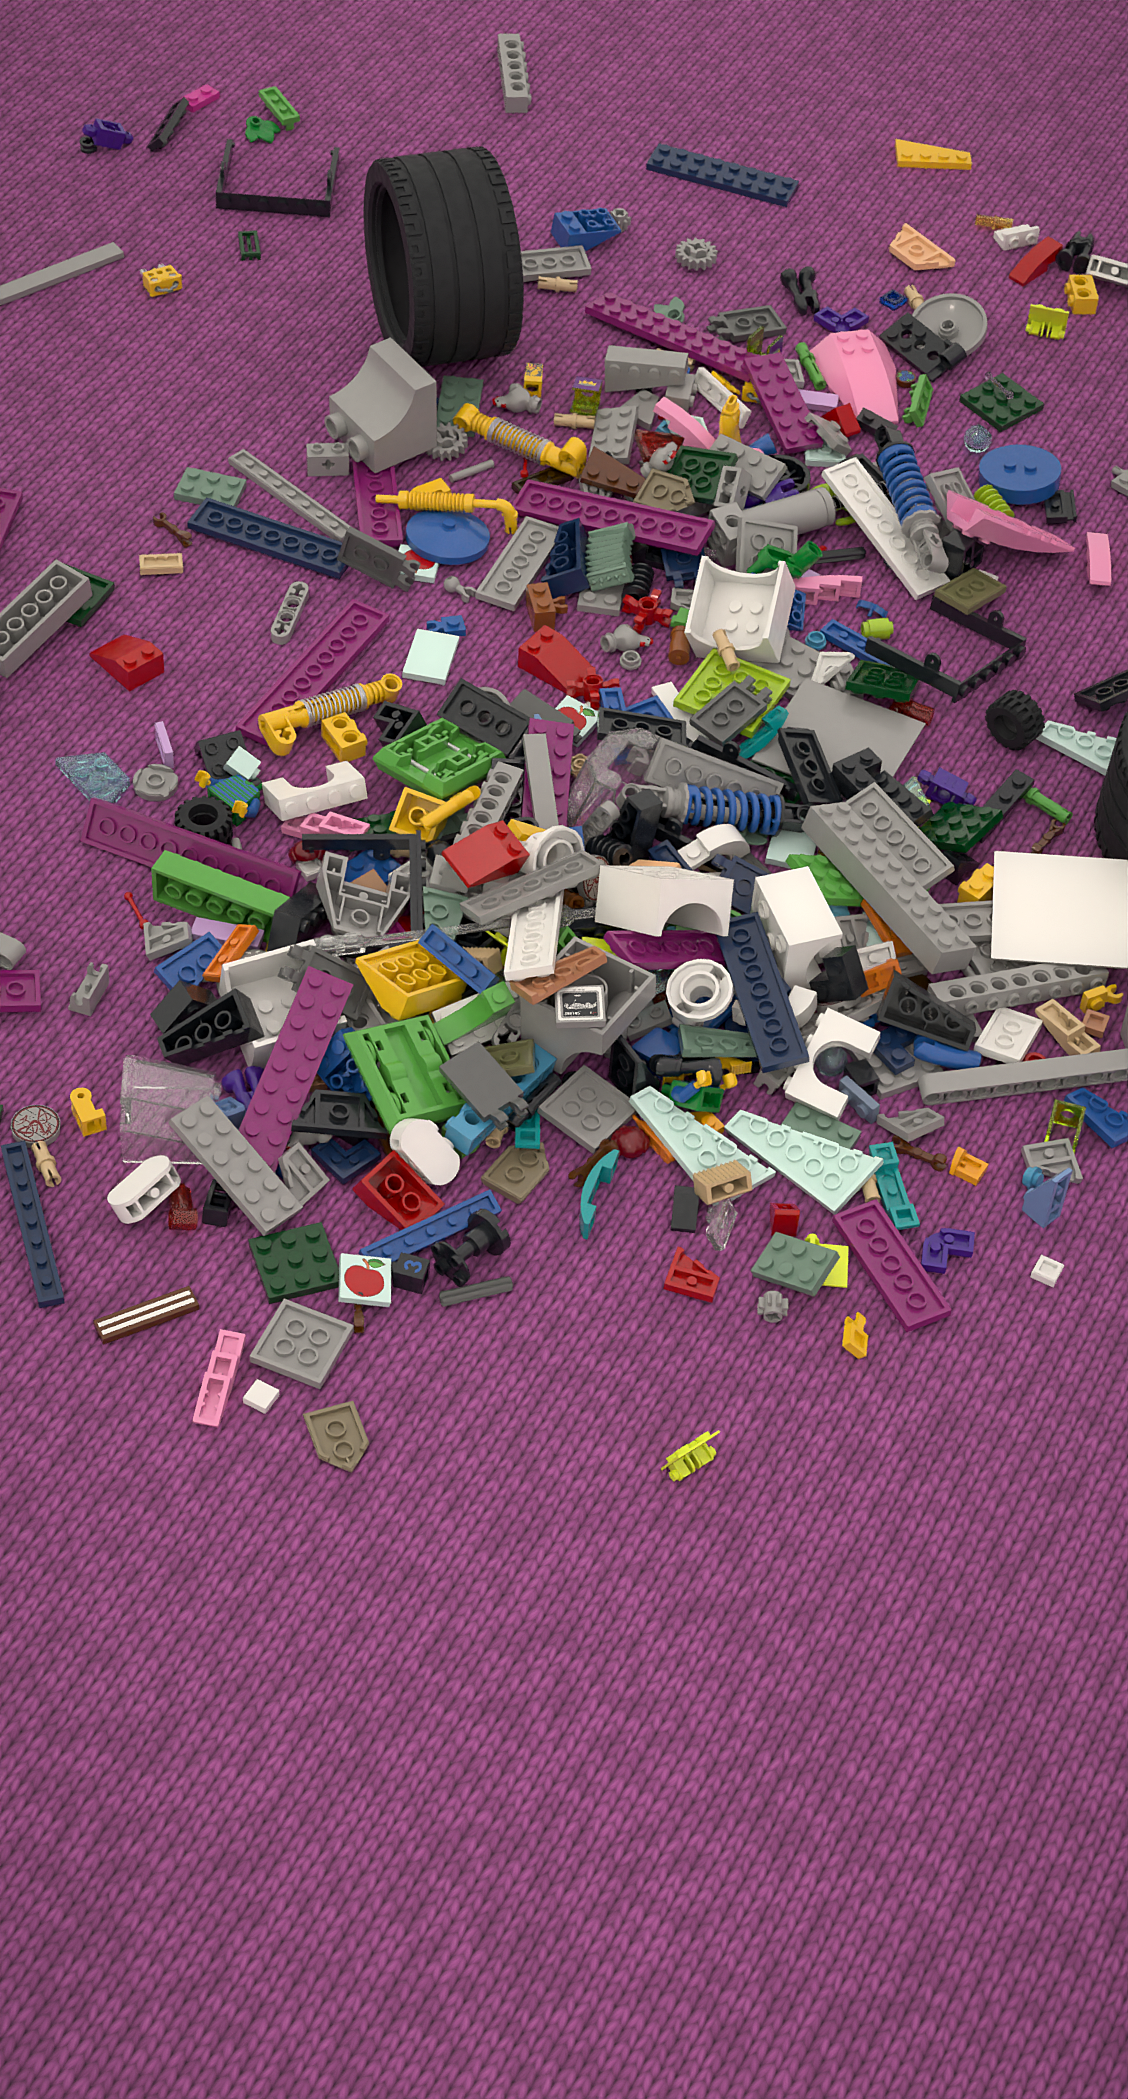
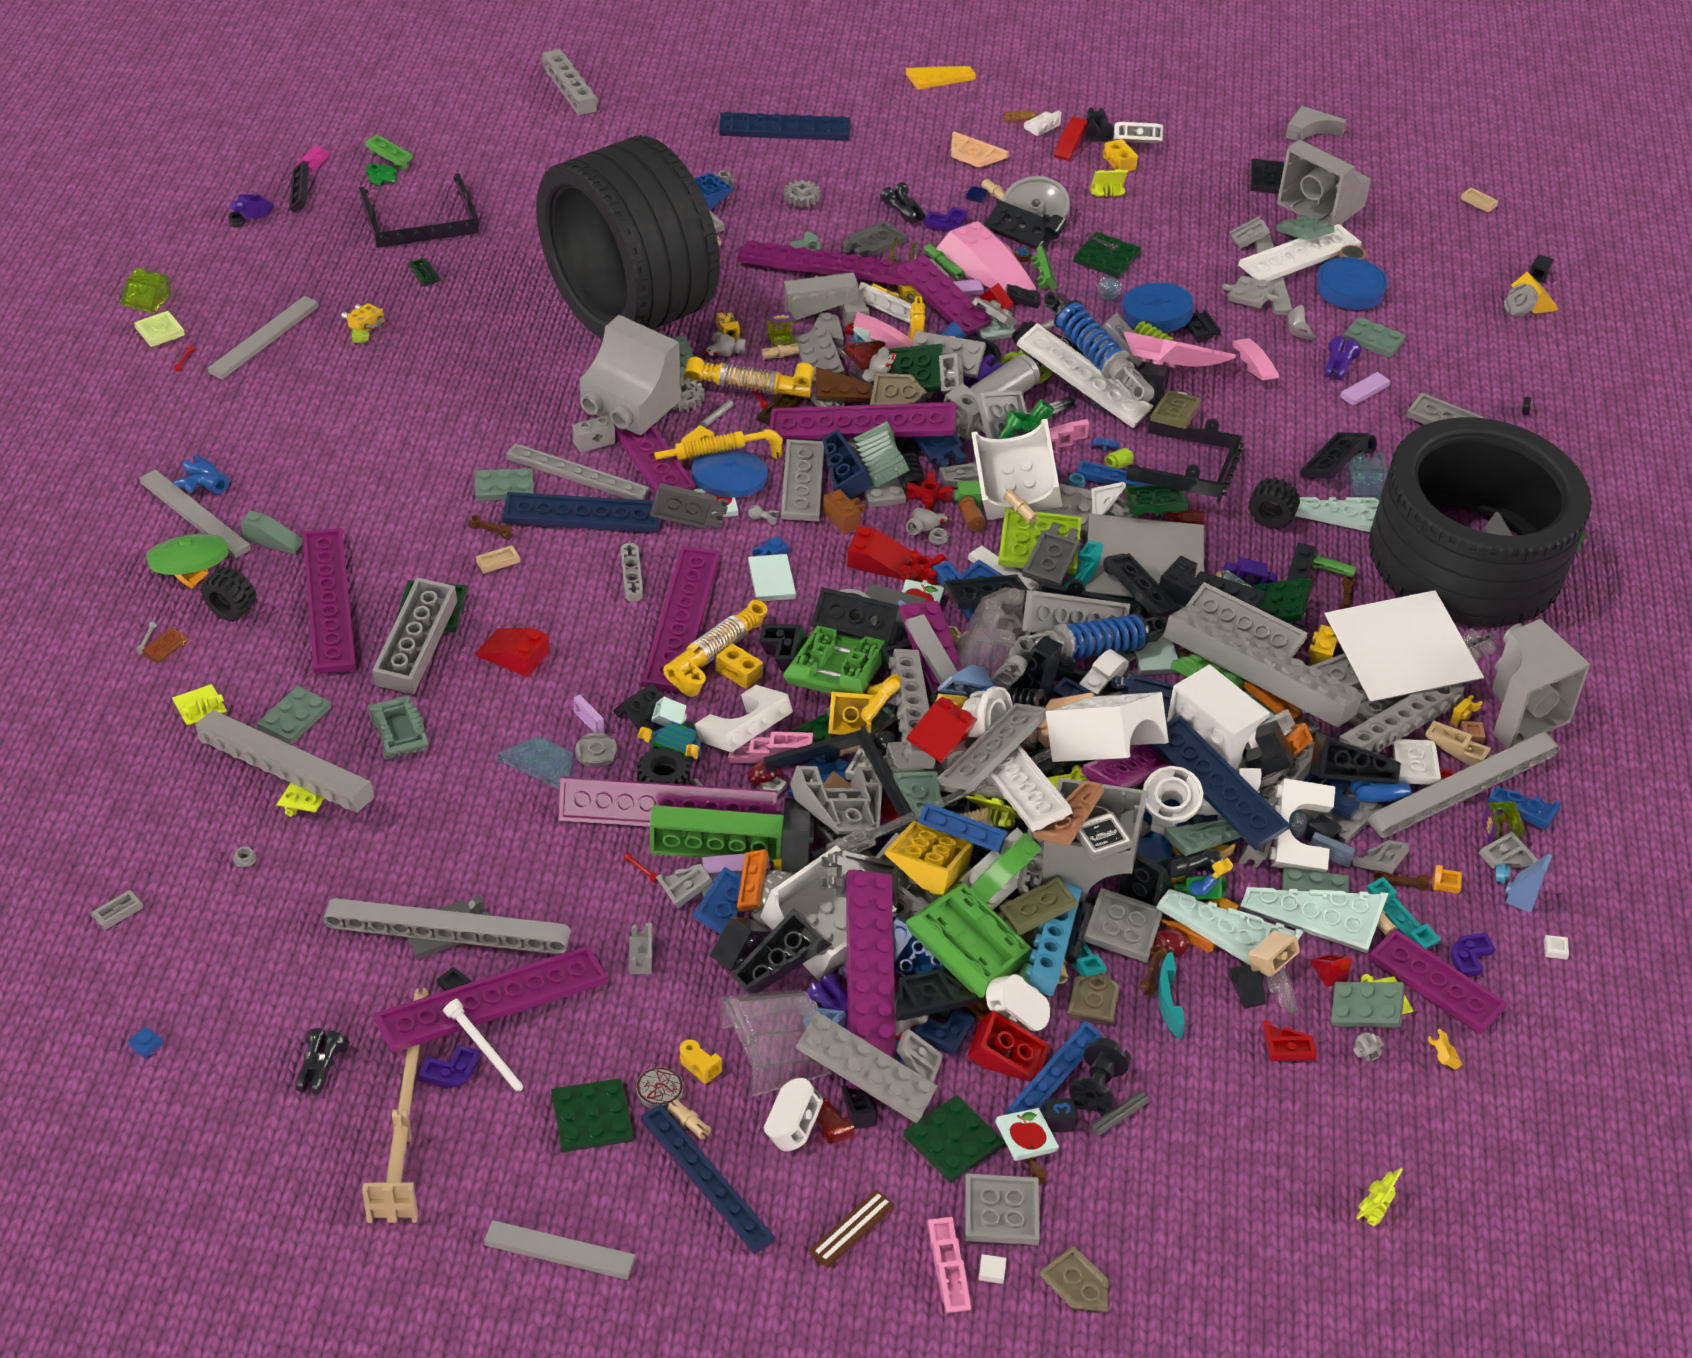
camera: 20 degrees left, 5 degrees down
(146, 298) = (359, 336): none -> lime hose
(484, 1085) = (1045, 930): dark grey tile -> none
(554, 813) = (966, 681): none -> medium blue slope

